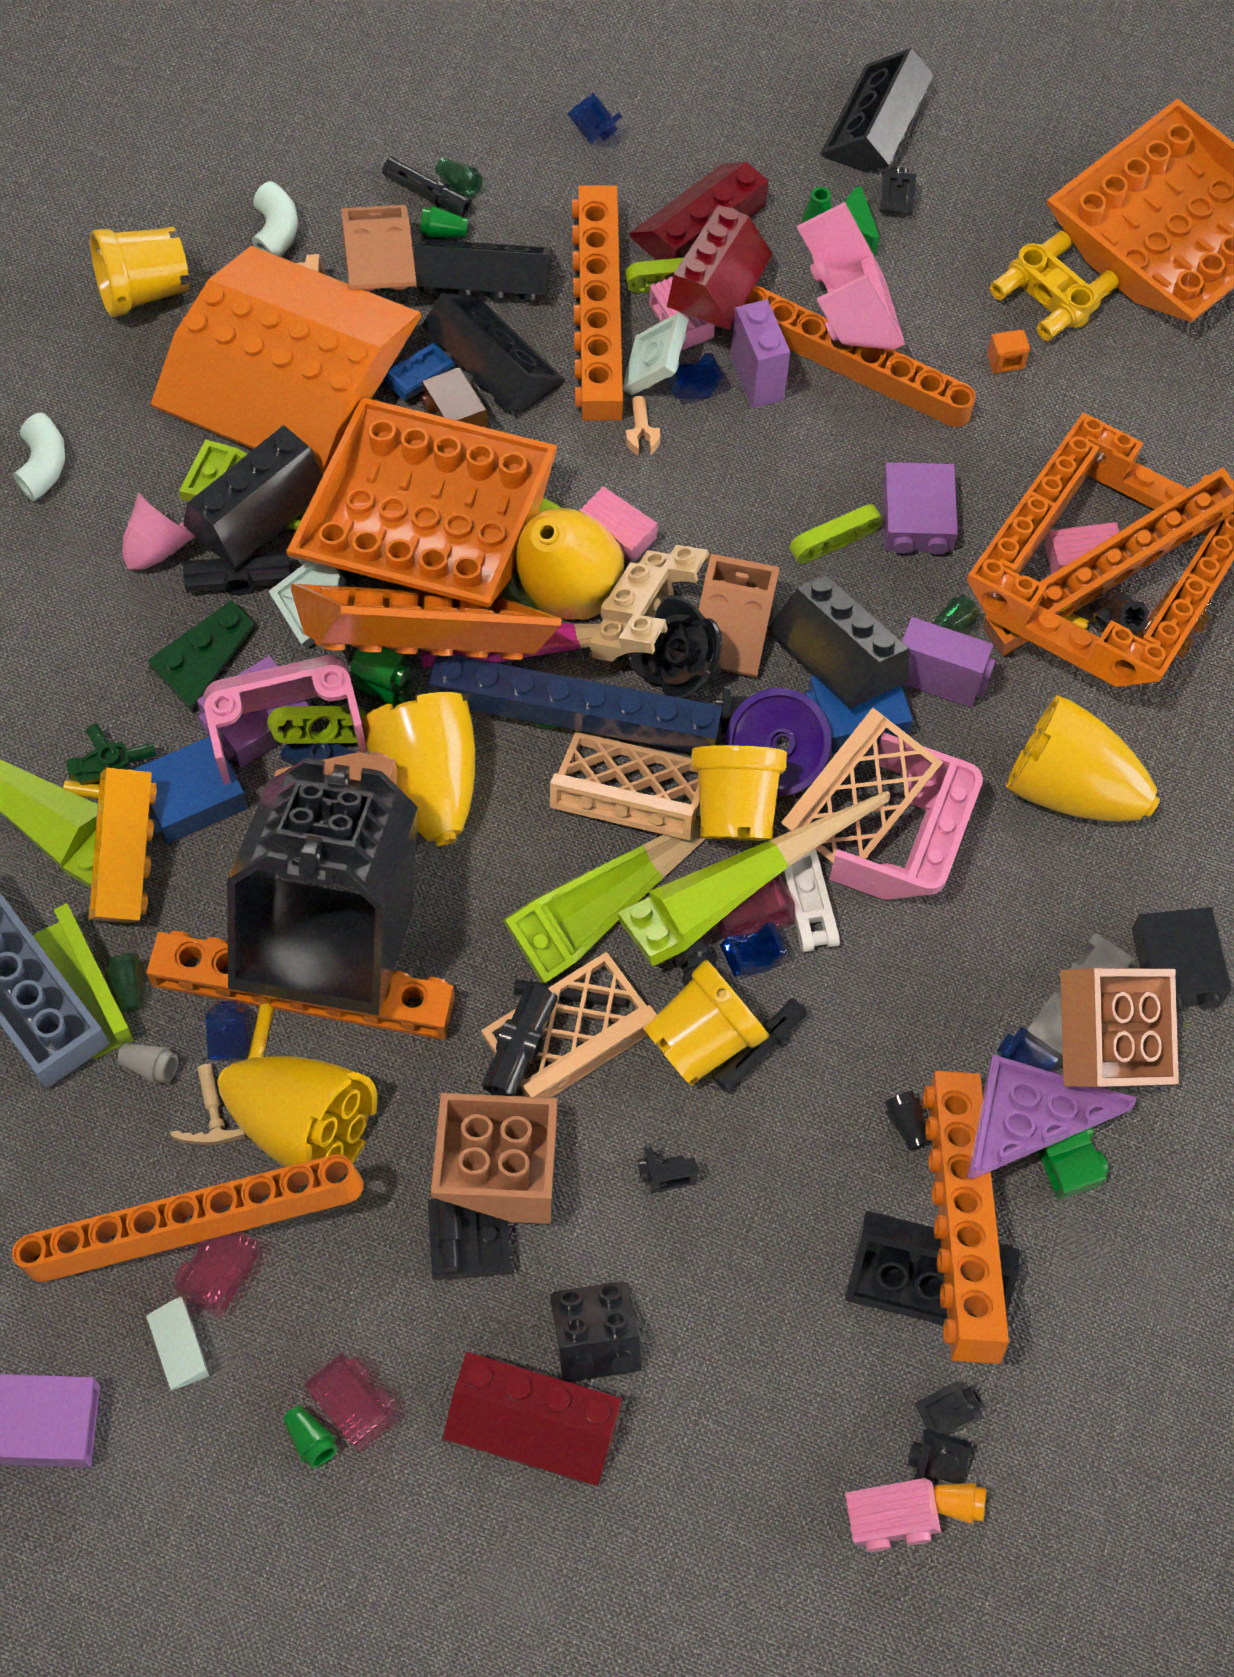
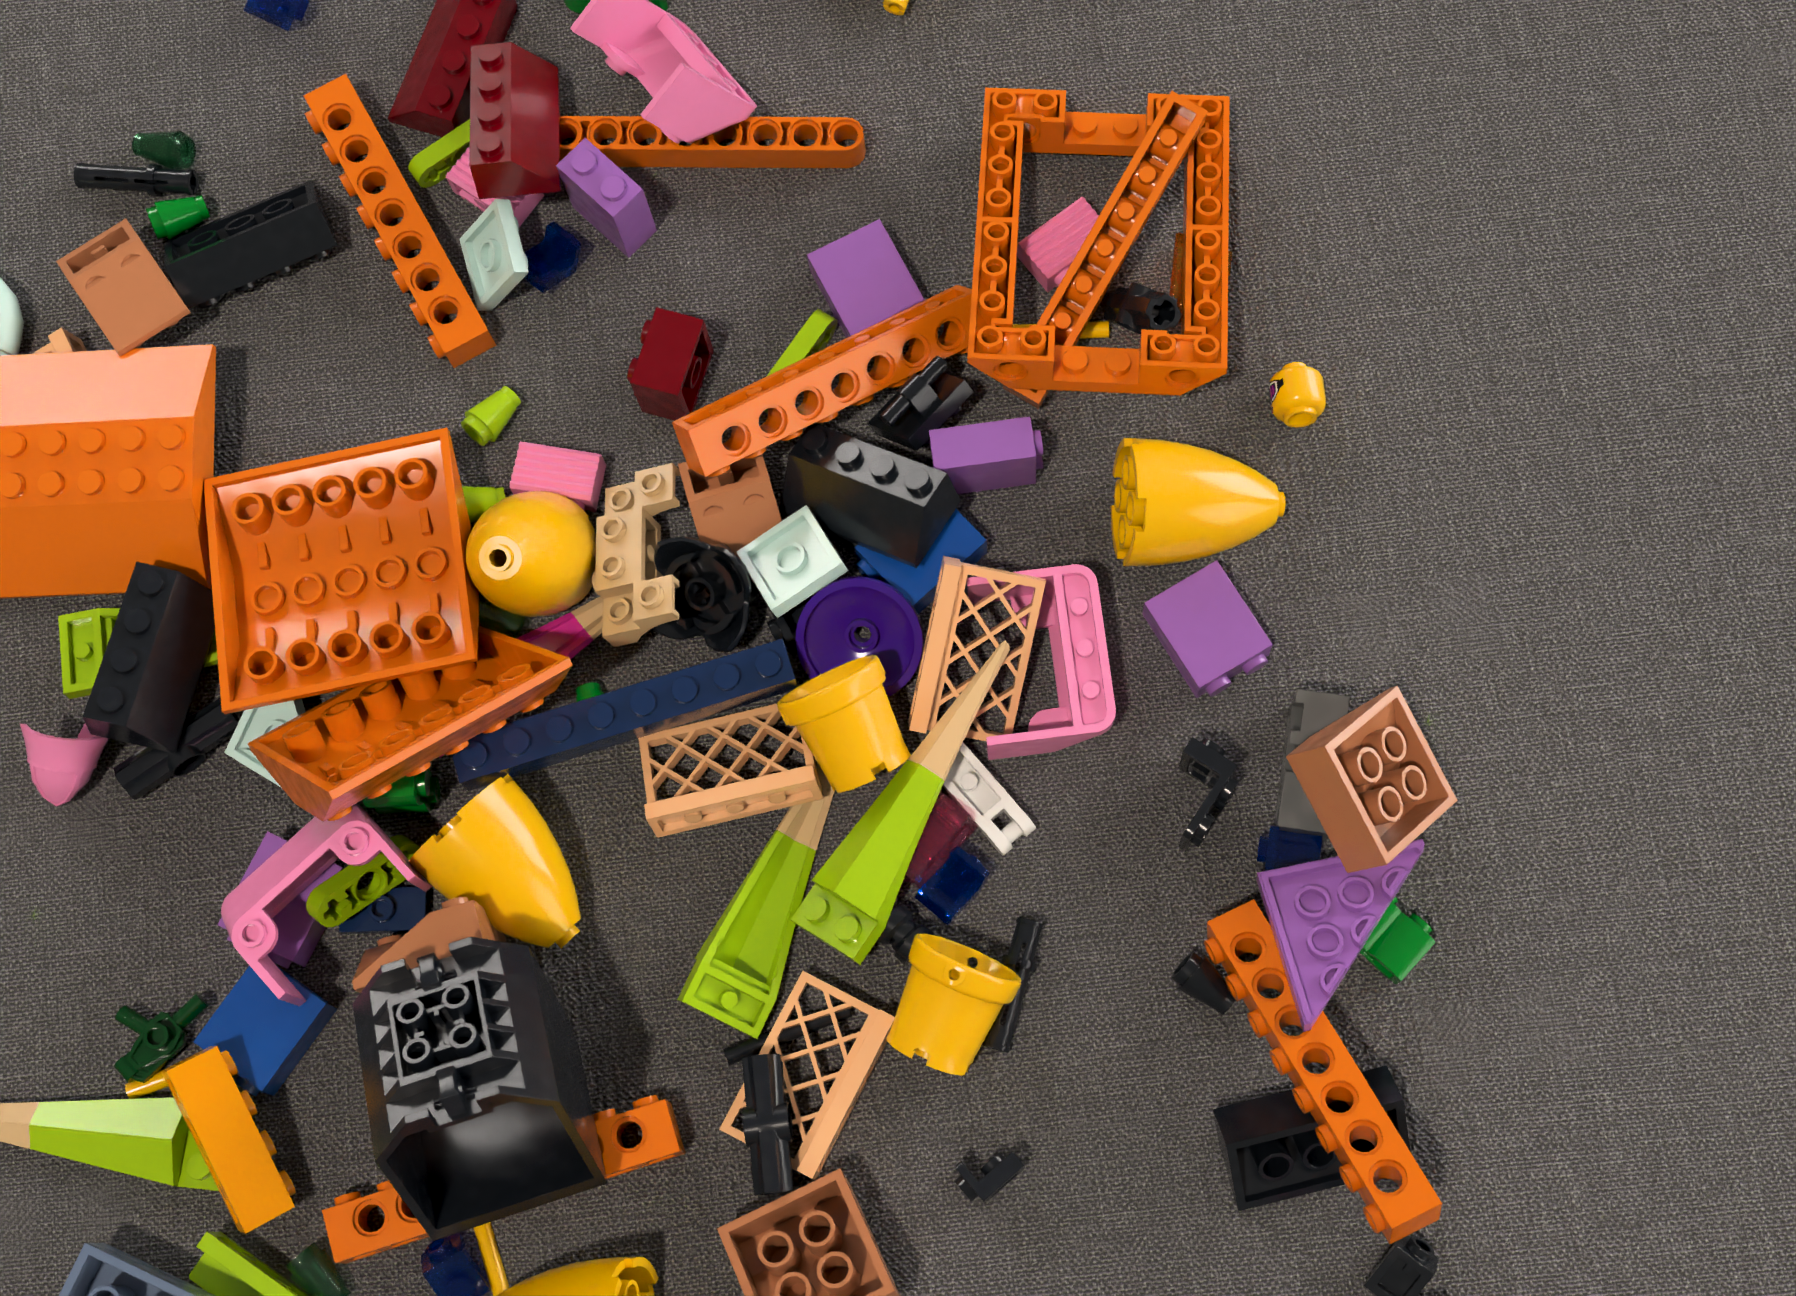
camera: 15 degrees left, 10 degrees up
(202, 653) = (191, 860): dark green wing -> none
(408, 375) = (247, 406): blue plate -> none
(453, 398) = (306, 426): brick -> none
(490, 351) = (313, 341): black slope -> none
(590, 462) = (490, 416): none -> lime cone
(641, 428) = (523, 344): light nougat bar -> none
(741, 532) = (703, 429): none -> orange brick
(743, 488) = (670, 364): none -> dark red brick
(758, 661) = (792, 561): none -> light aqua plate
(915, 598) = (921, 406): none -> black plate
(958, 614) = (980, 384): clear green cone -> none
(997, 966) = (1208, 765): none -> black bracket
(1008, 351) = (867, 51): orange slope -> none
(1048, 869) = (1207, 630): none -> medium lavender brick
(1192, 947) = (1389, 648): black brick -> none
(1207, 739) = (1297, 395): none -> yellow head

